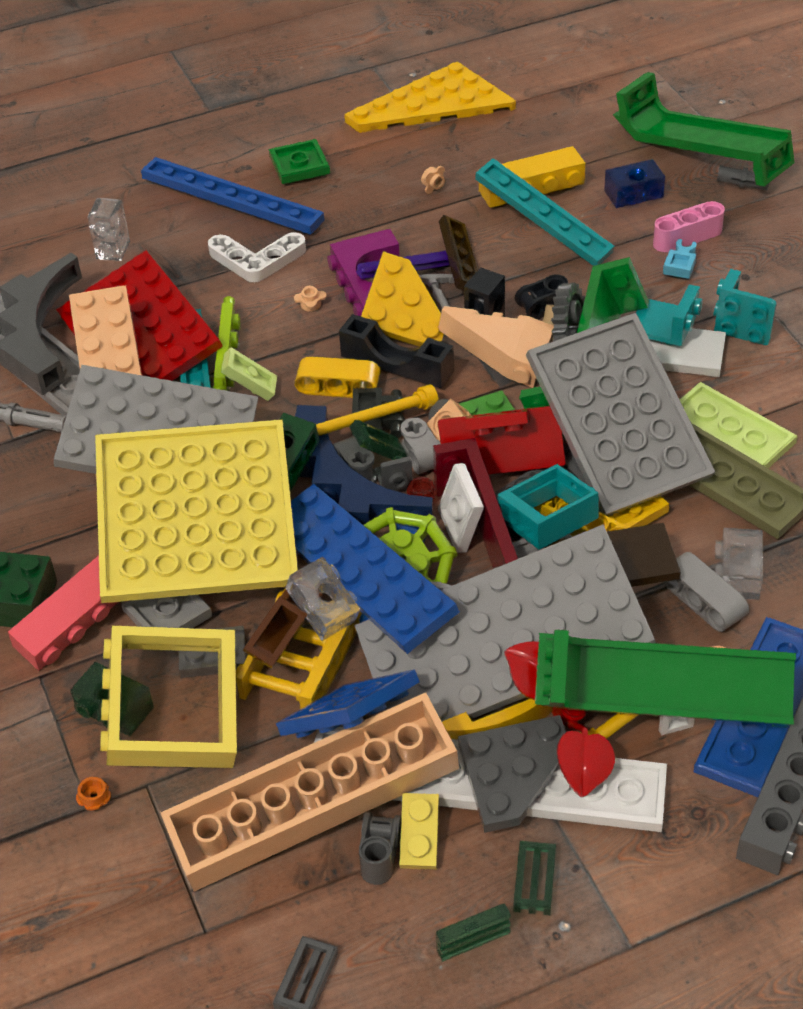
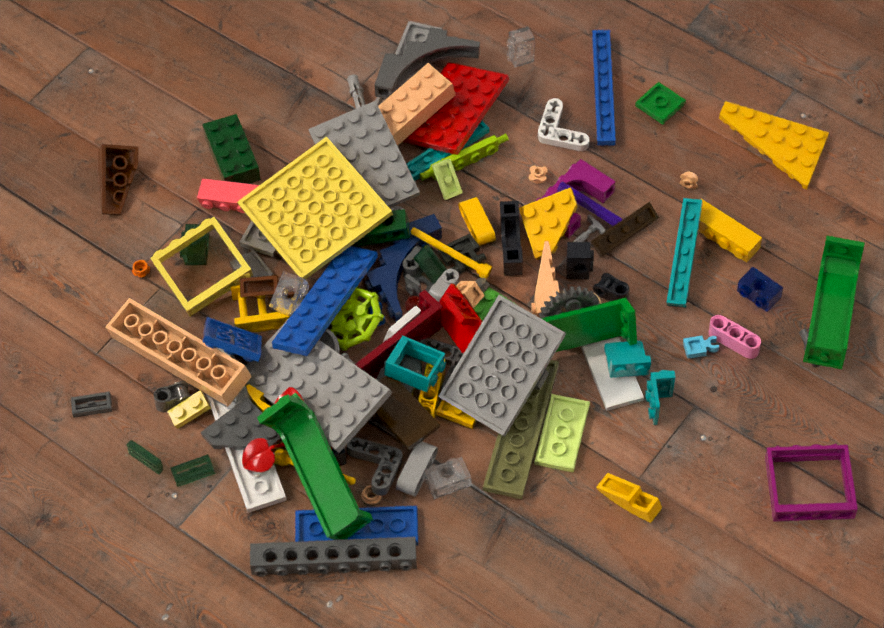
camera: 60 degrees right, 10 degrees up
(671, 615) = (383, 459): none -> dark grey beam

